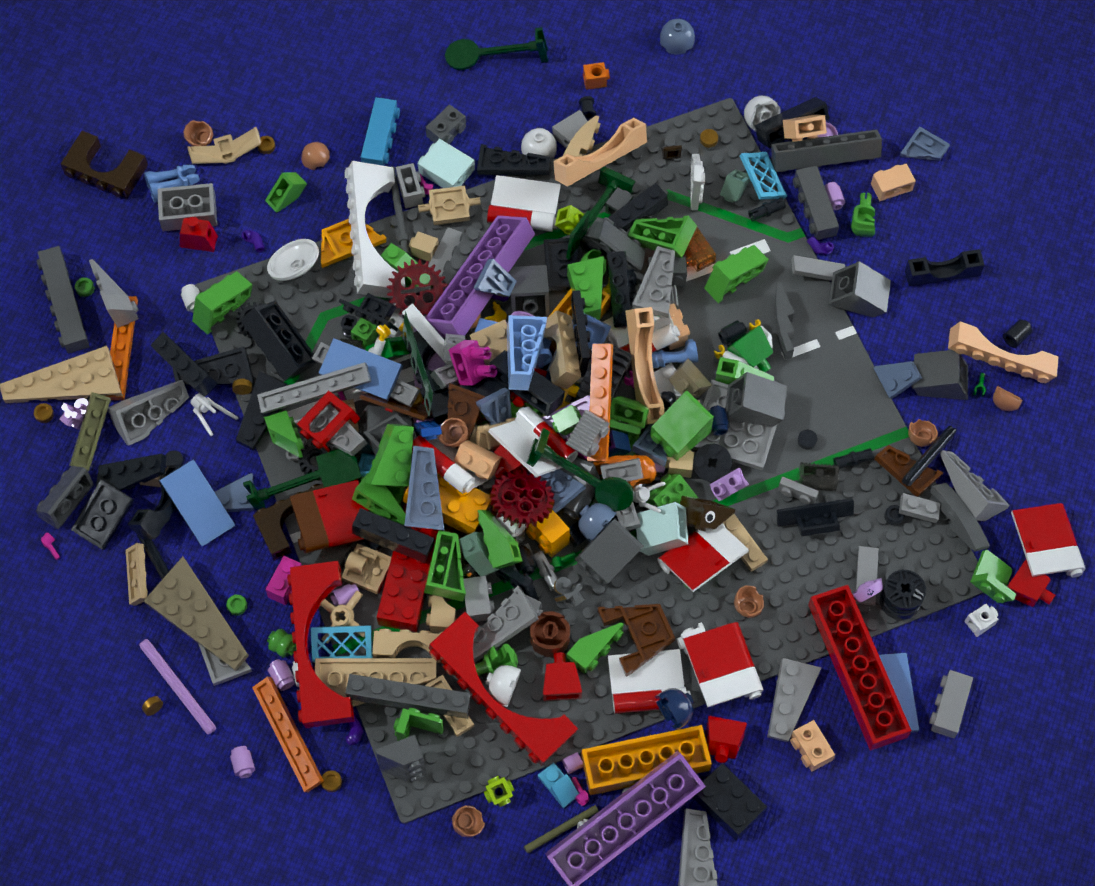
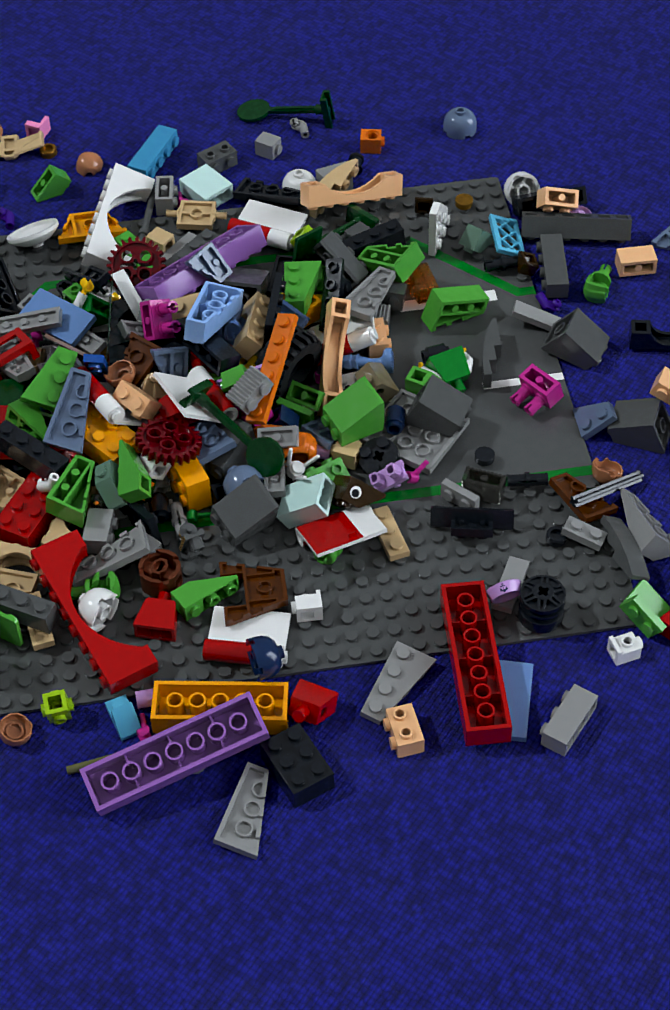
camera: 15 degrees right, 15 degrees down
(246, 119) = (34, 127): none -> bright pink panel
(415, 567) = (47, 485): none -> white arm
(493, 100) = (268, 145): none -> light grey brick
(517, 67) = (300, 126): none -> light grey arm
(723, 664) = (330, 632): red door -> none
(748, 601) = (376, 582): nougat hair -> none
(750, 473) = (414, 475): none -> dark pink hand
(791, 205) = (527, 263): none -> dark brown slope
(835, 195) = (574, 264): lavender brick -> none
(841, 352) = (539, 385): none -> dark pink brick

